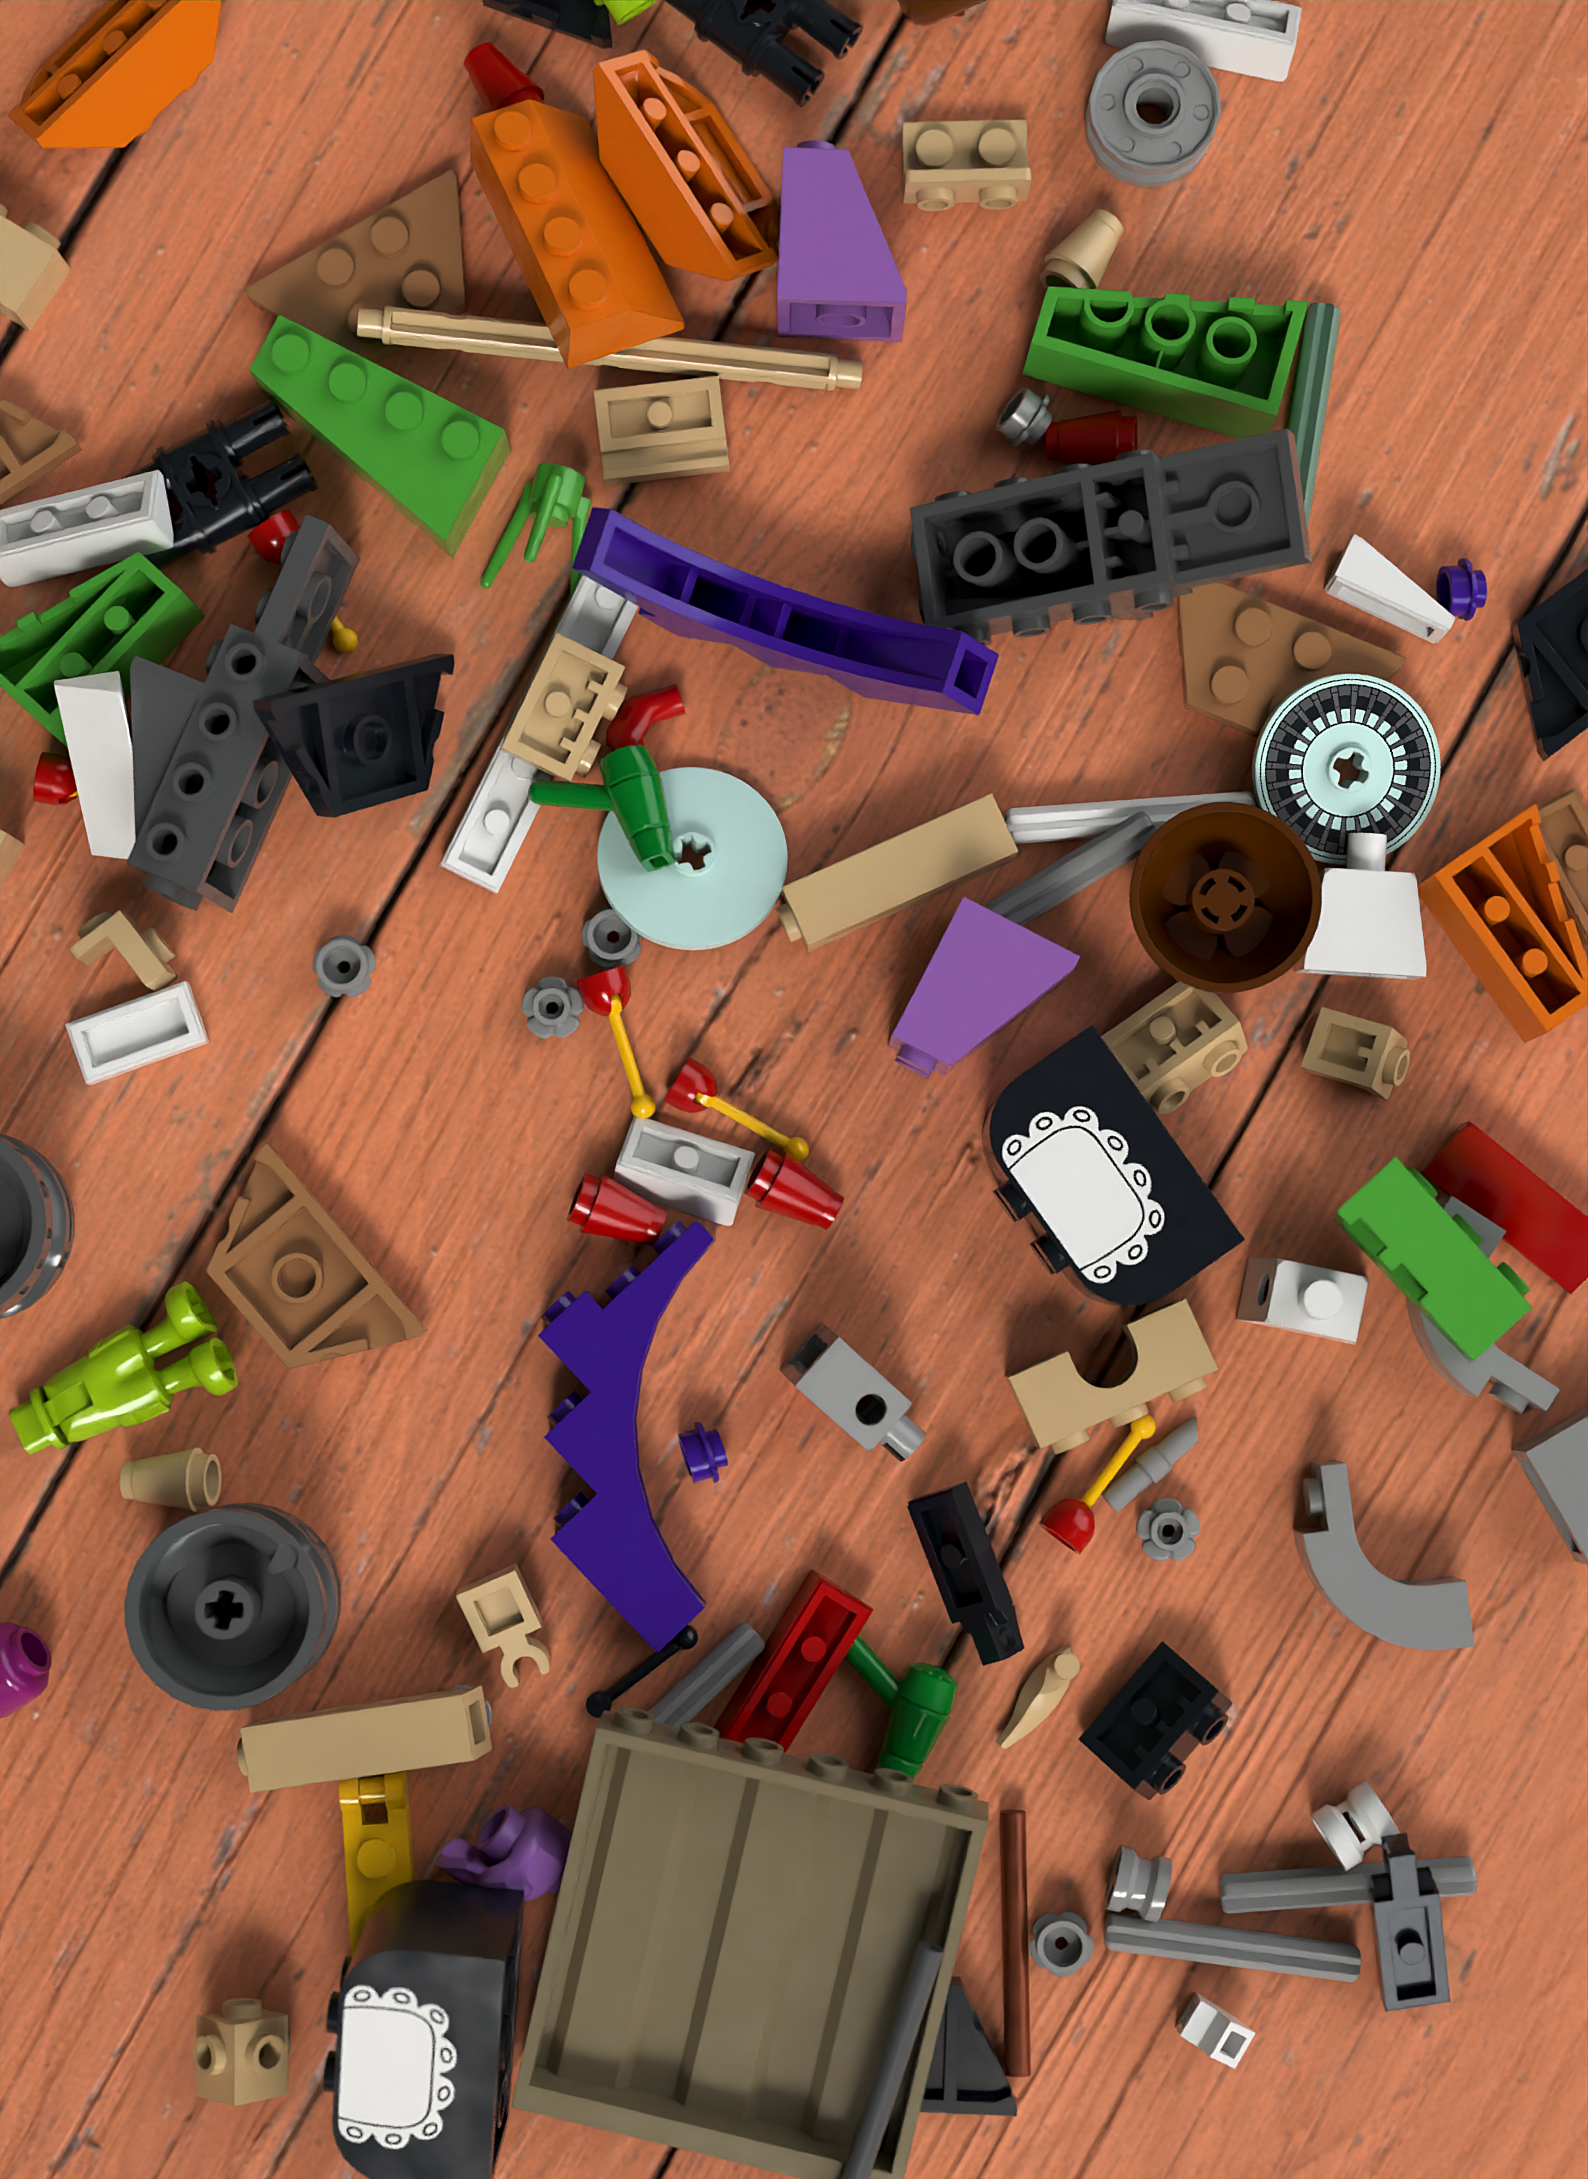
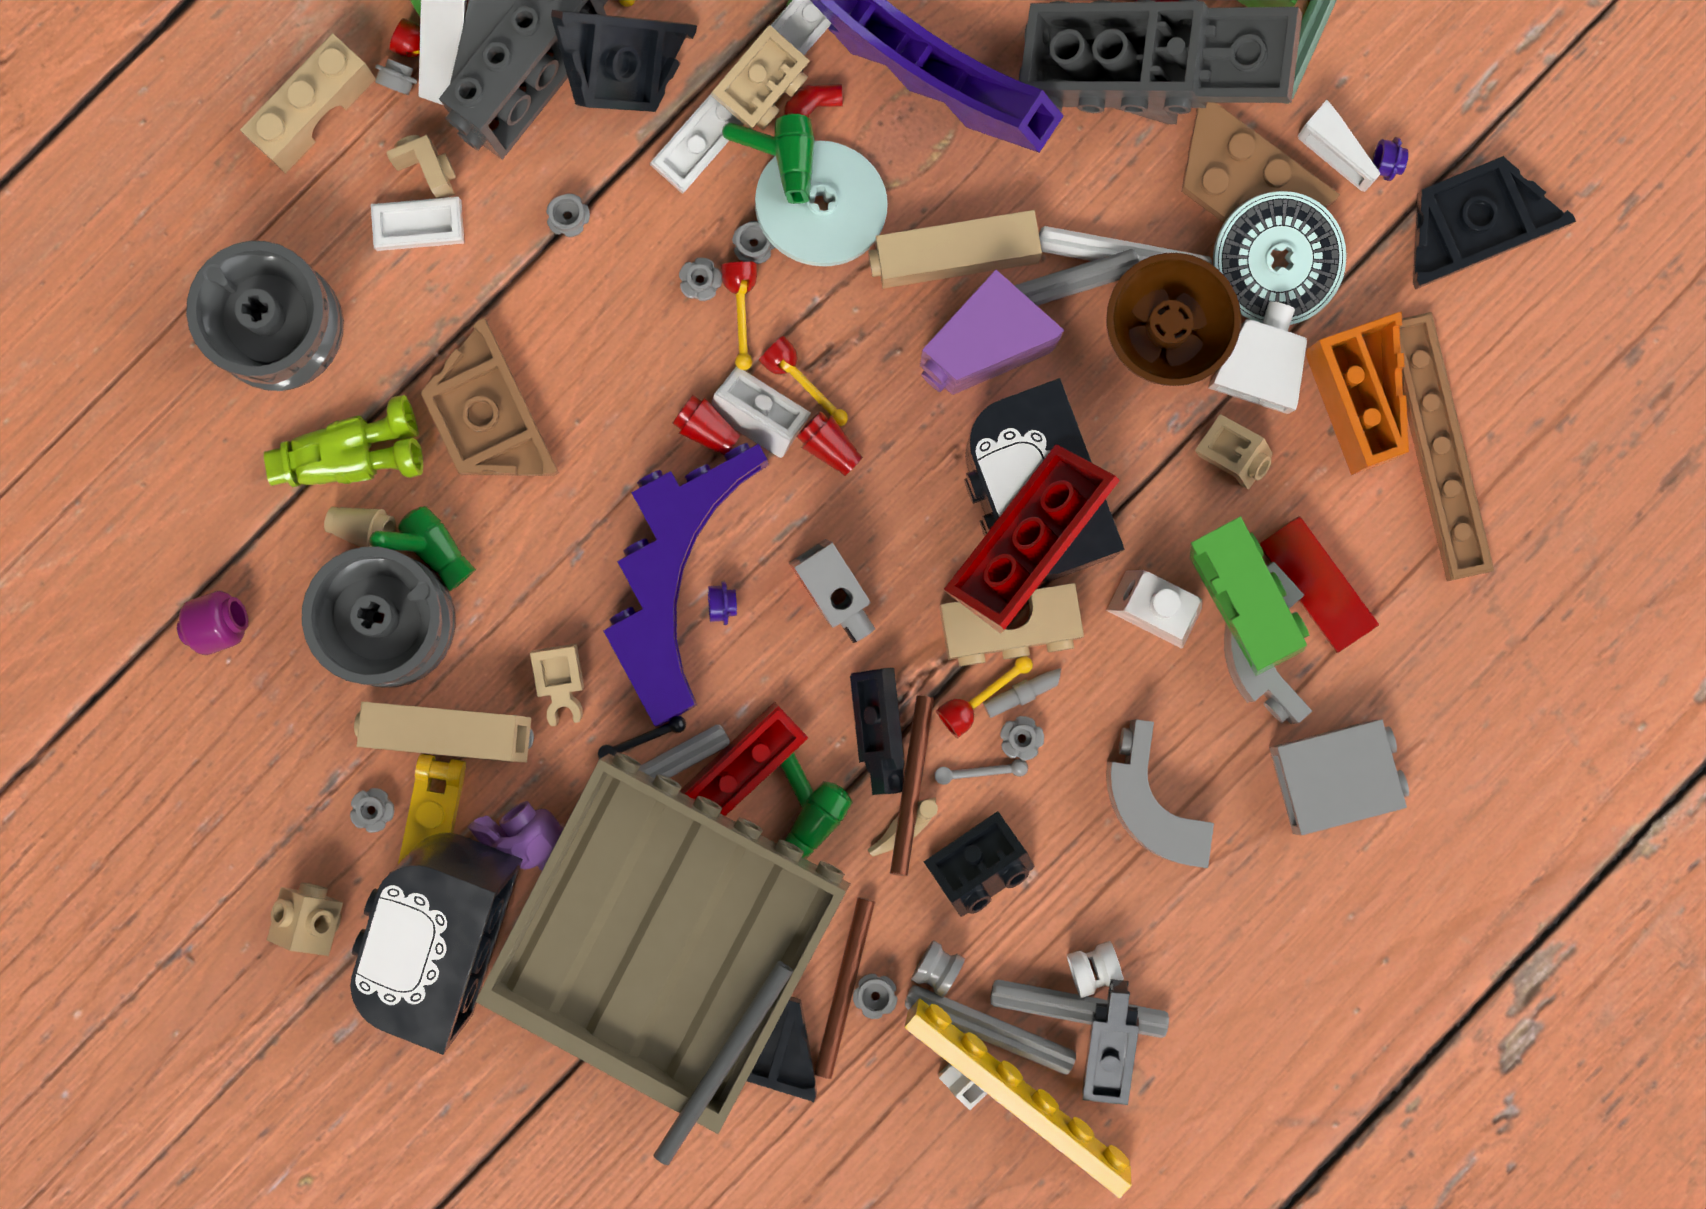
camera: 15 degrees right, 0 degrees up
(53, 837) = (395, 76): none -> light grey plate
(275, 1474) = (430, 540): none -> green piece
(303, 1857) = (383, 814): none -> light grey plate
(1034, 1638) = (911, 786): none -> copper bar
(1075, 1609) = (945, 775): none -> light grey hinge
(1113, 1260) = (1030, 537): none -> red slope
(1177, 1044) = (1116, 413): tan bracket -> none
(1283, 2027) = (1007, 1087): none -> yellow plate

